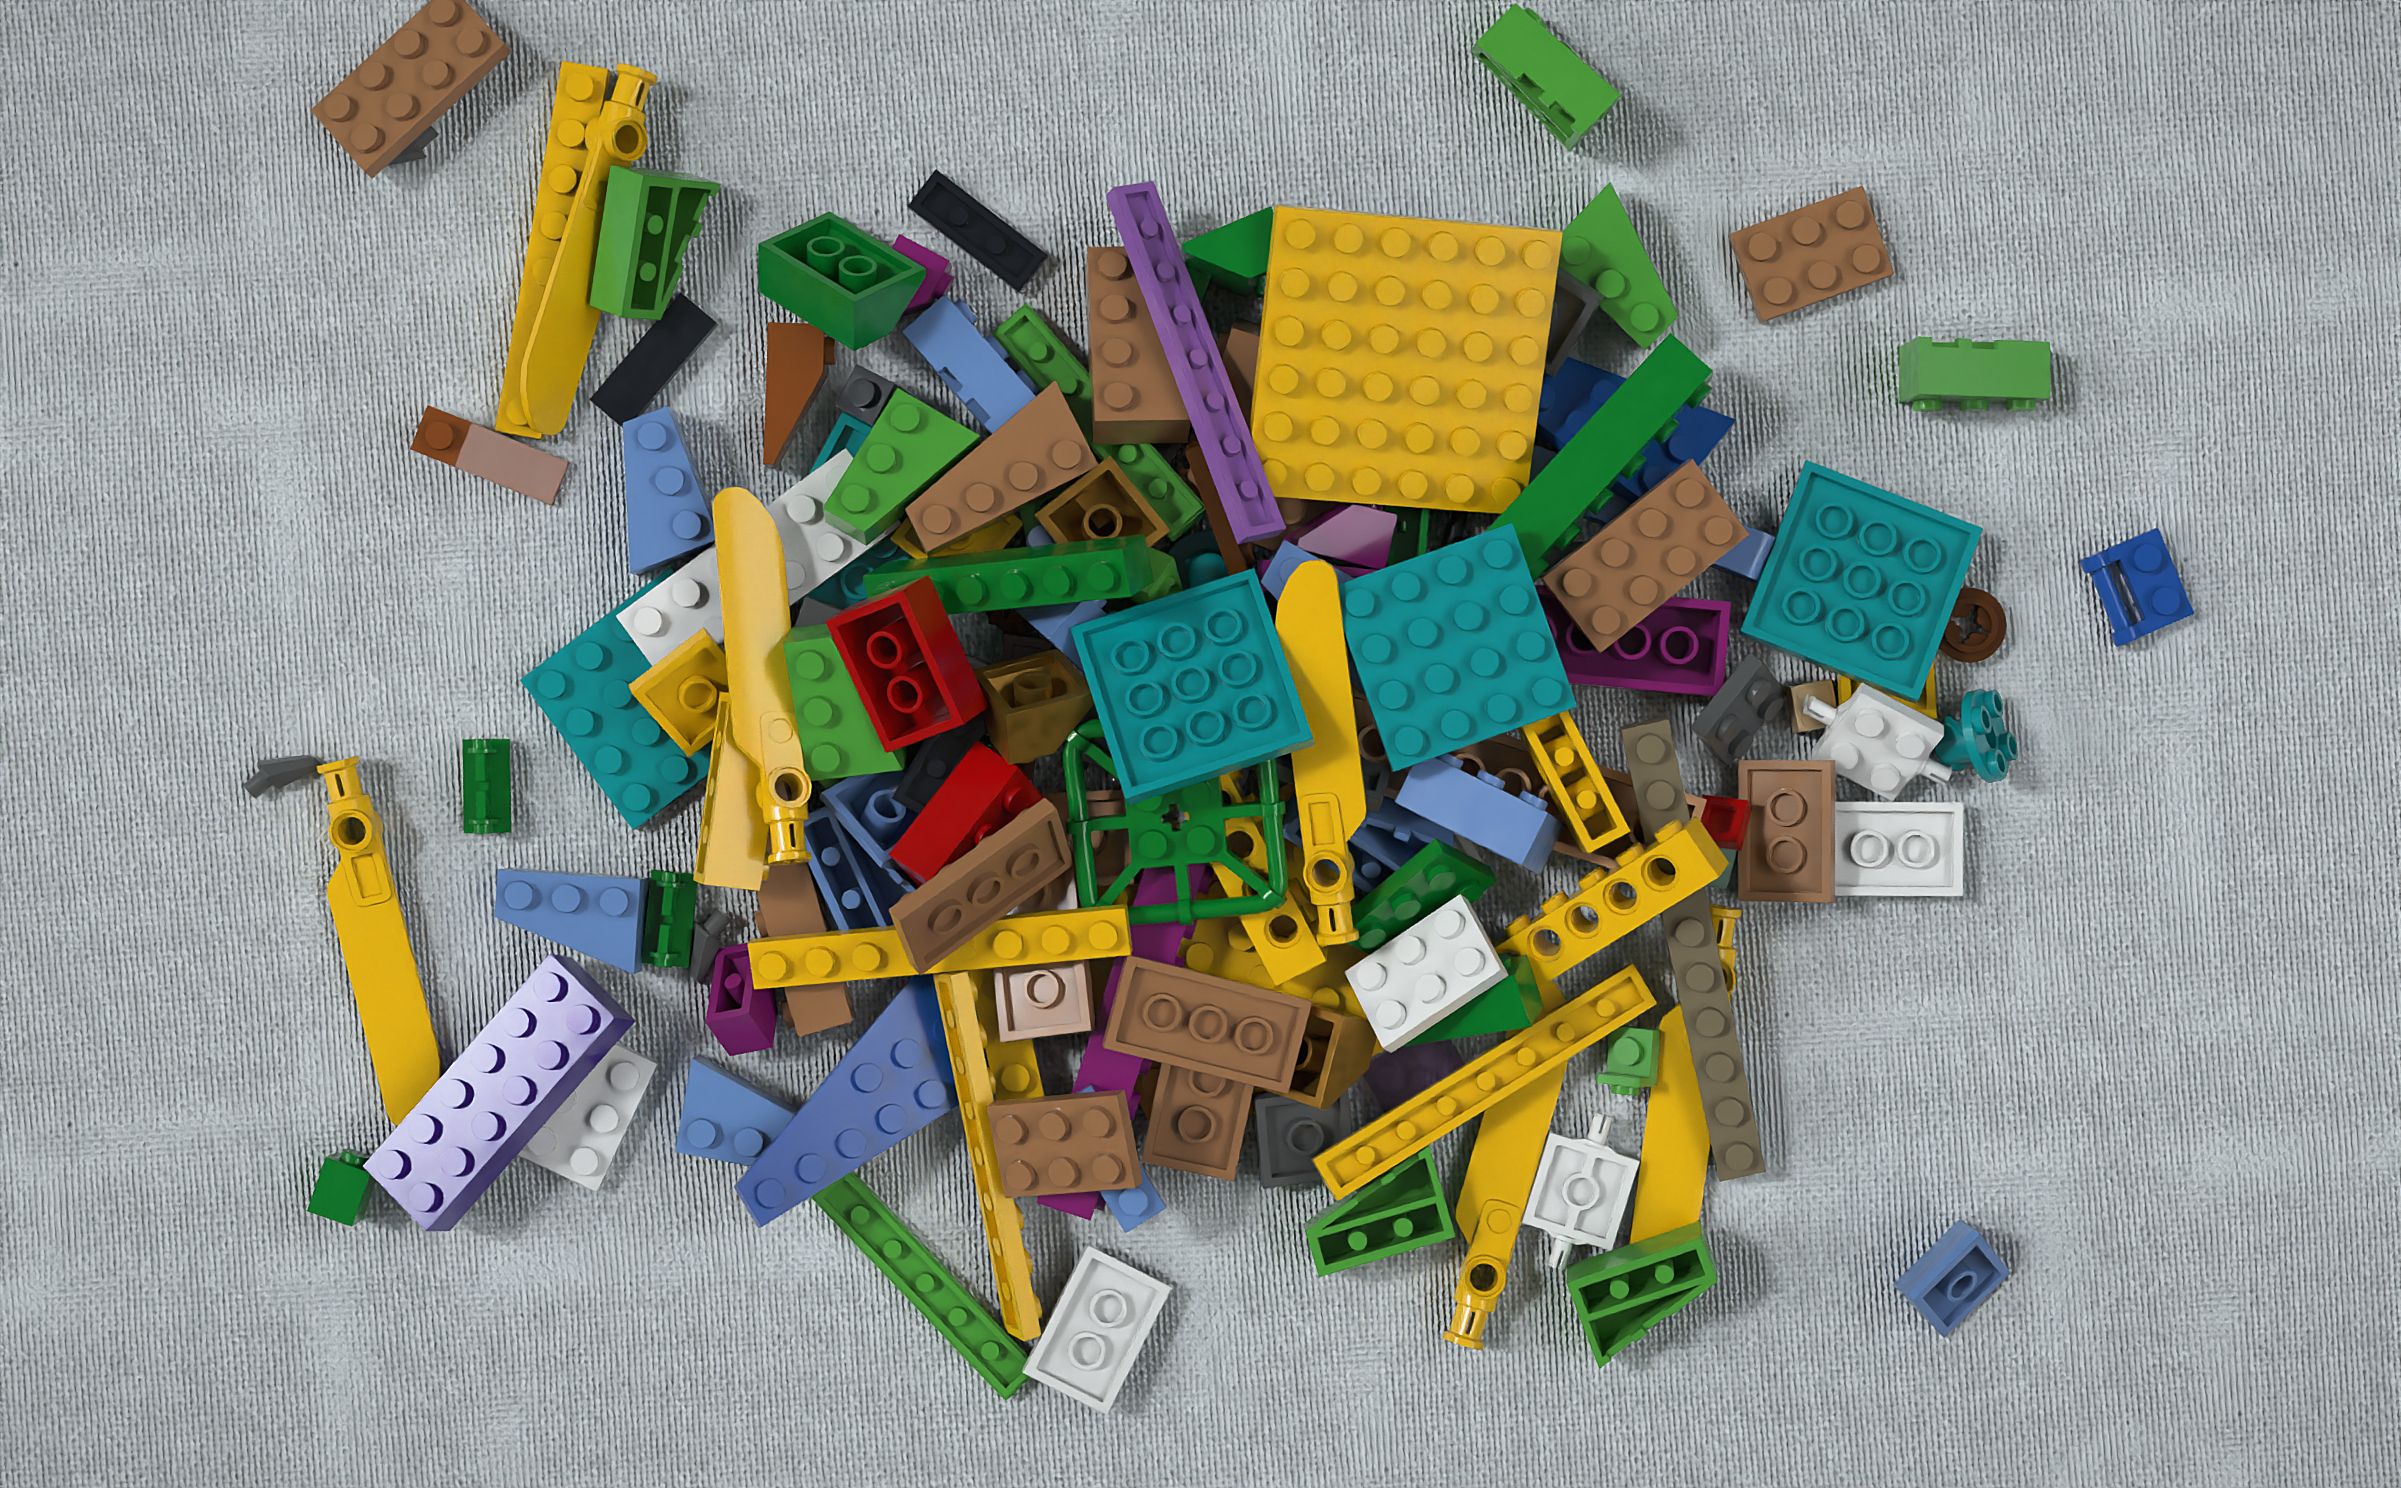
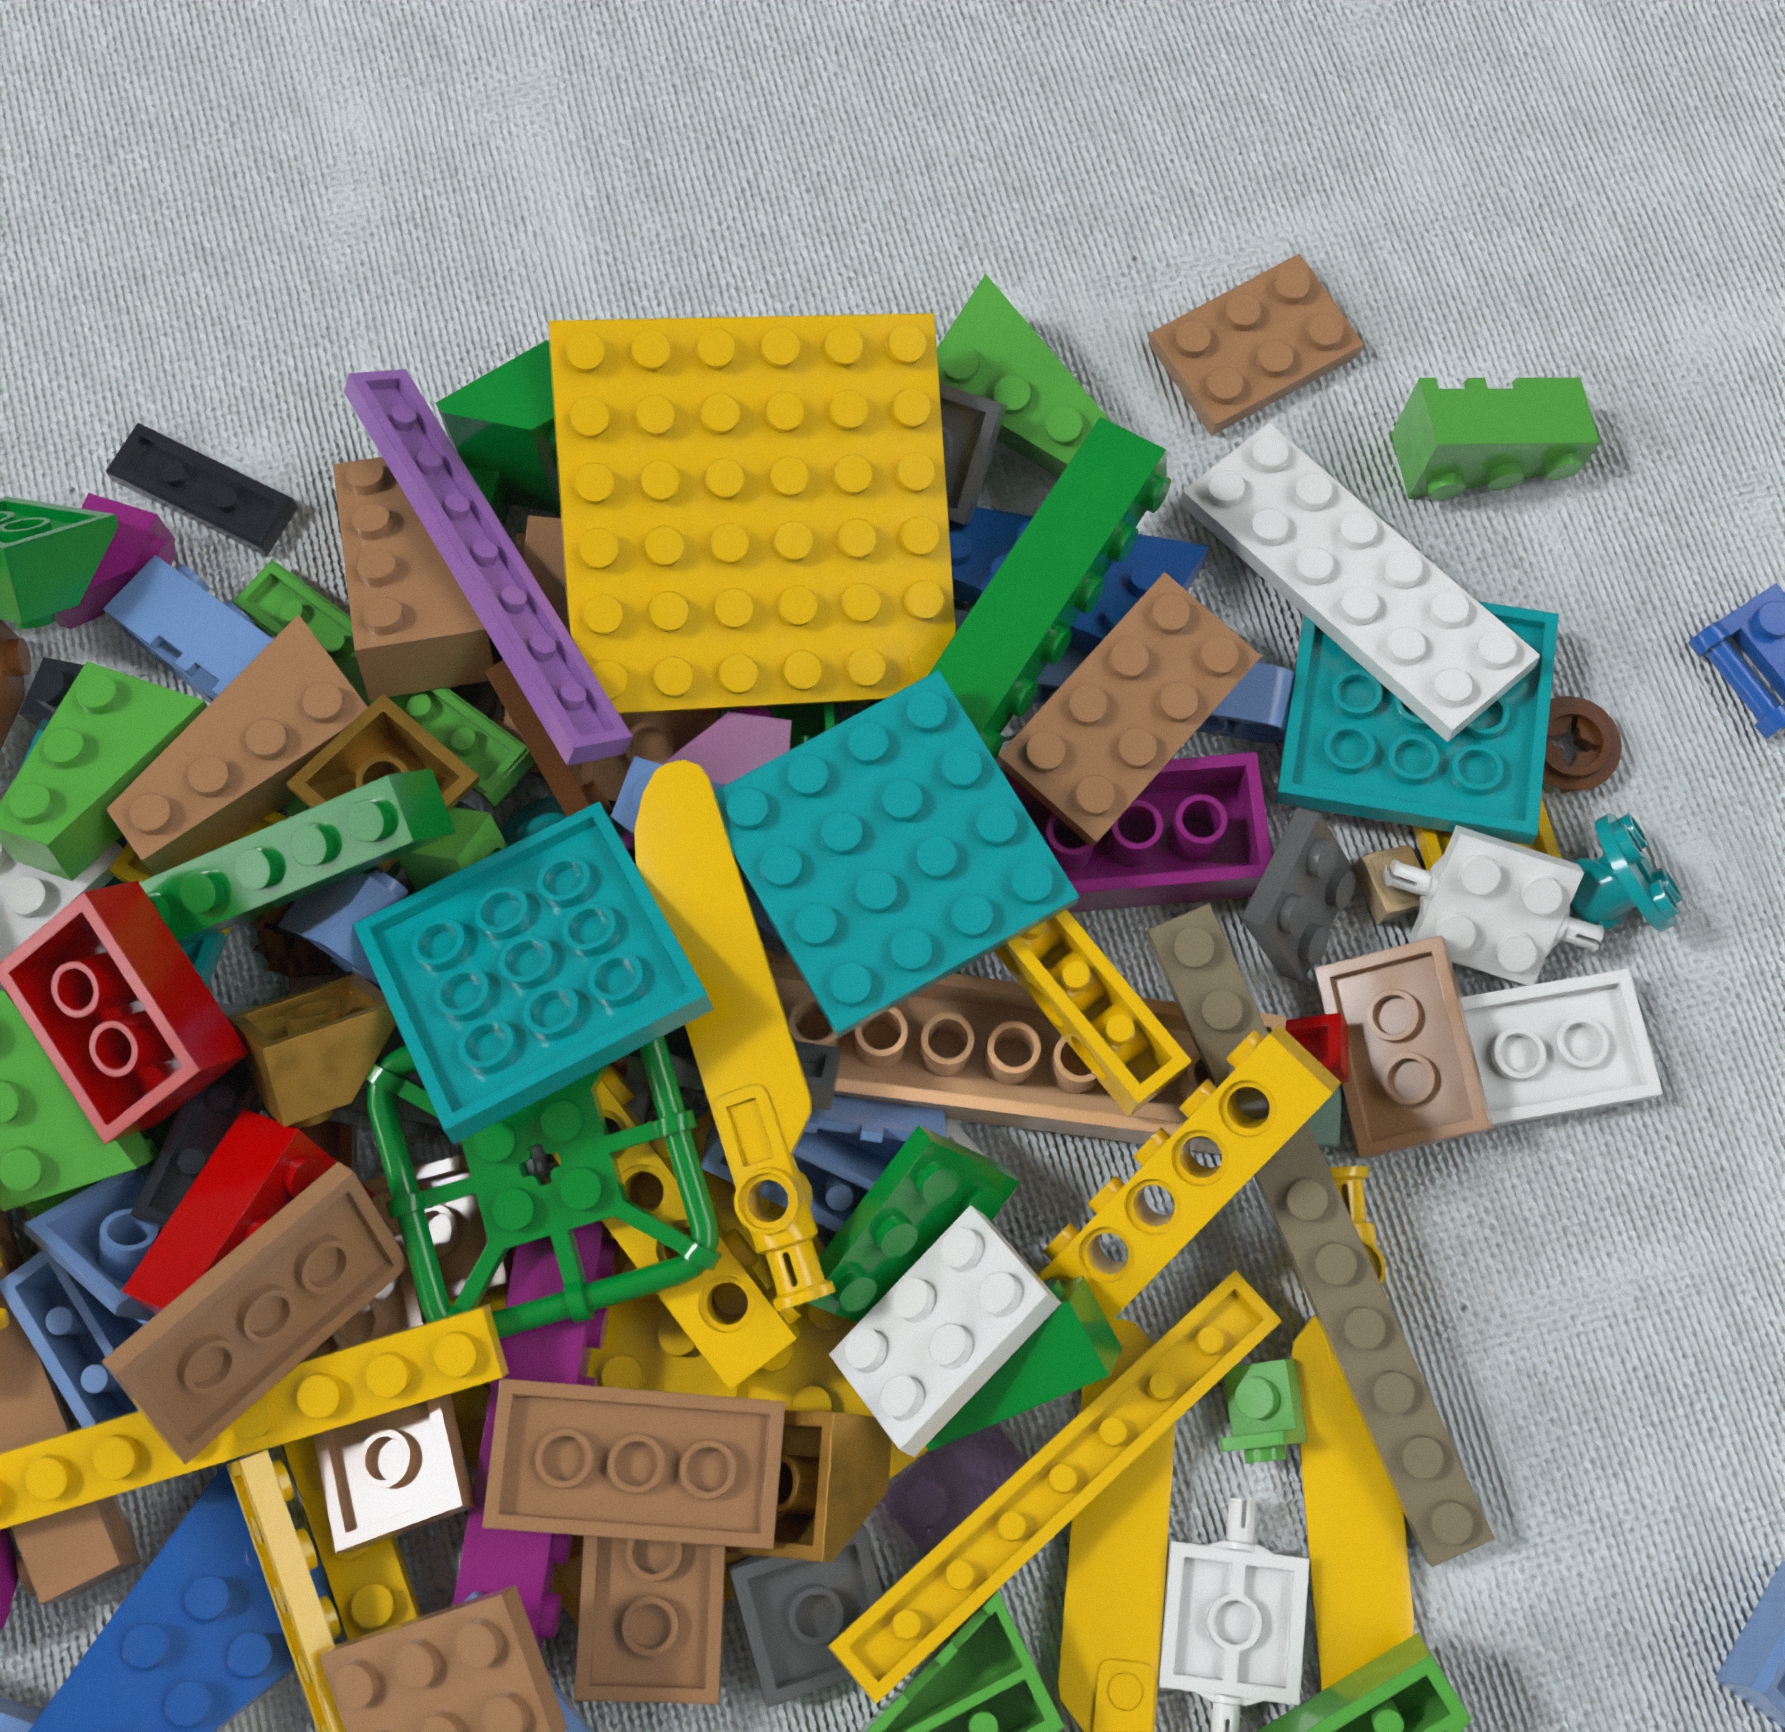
camera: 10 degrees left, 15 degrees down
(1481, 811) = (977, 1078): medium blue wedge -> none
(1545, 75) = (887, 190): bright green wedge -> none
(1839, 472) = (1359, 581): none -> white plate

